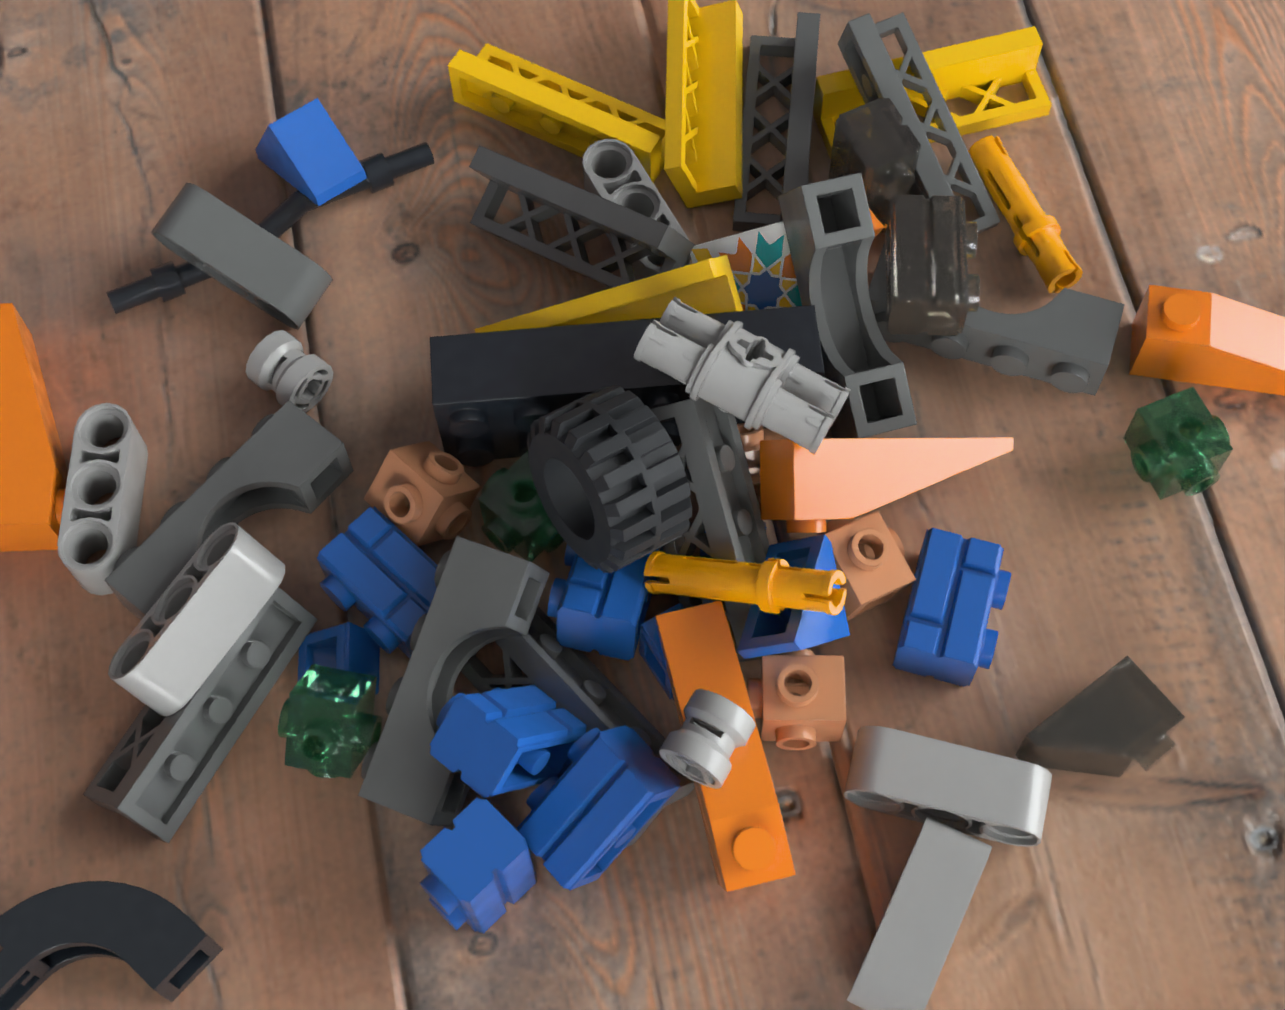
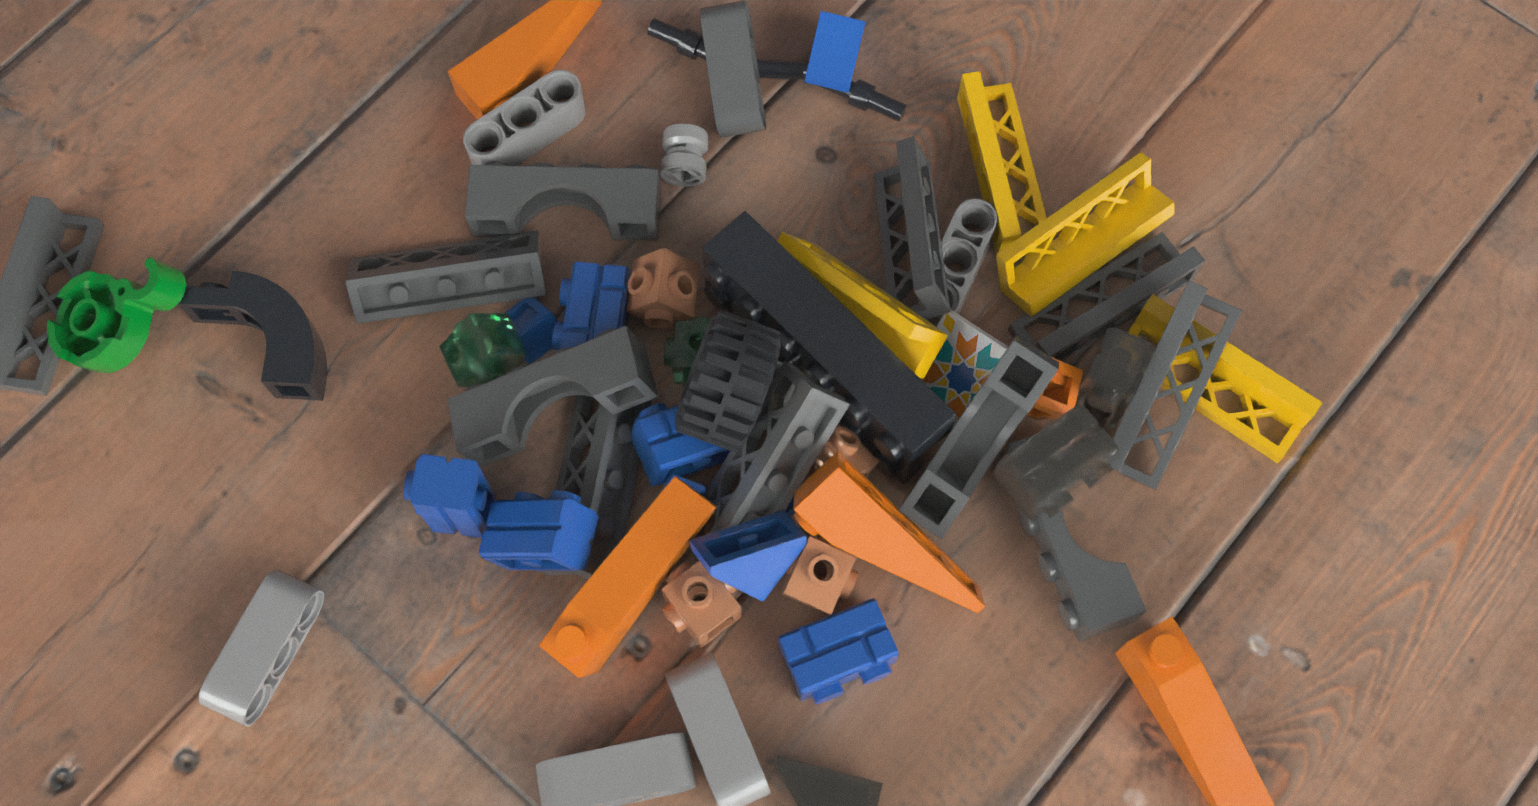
camera: 50 degrees right, 5 degrees up
(197, 620) = (482, 231): beam -> none
(505, 738) = (534, 450): blue brick -> none
(707, 738) = (597, 566): light grey wheel -> none
(742, 374) = (854, 405): light grey pin -> none
(768, 584) = (737, 525): light orange pin -> none
(1034, 231) = (1166, 516): light orange pin -> none
(1178, 444) = (1085, 706): clear green brick -> none

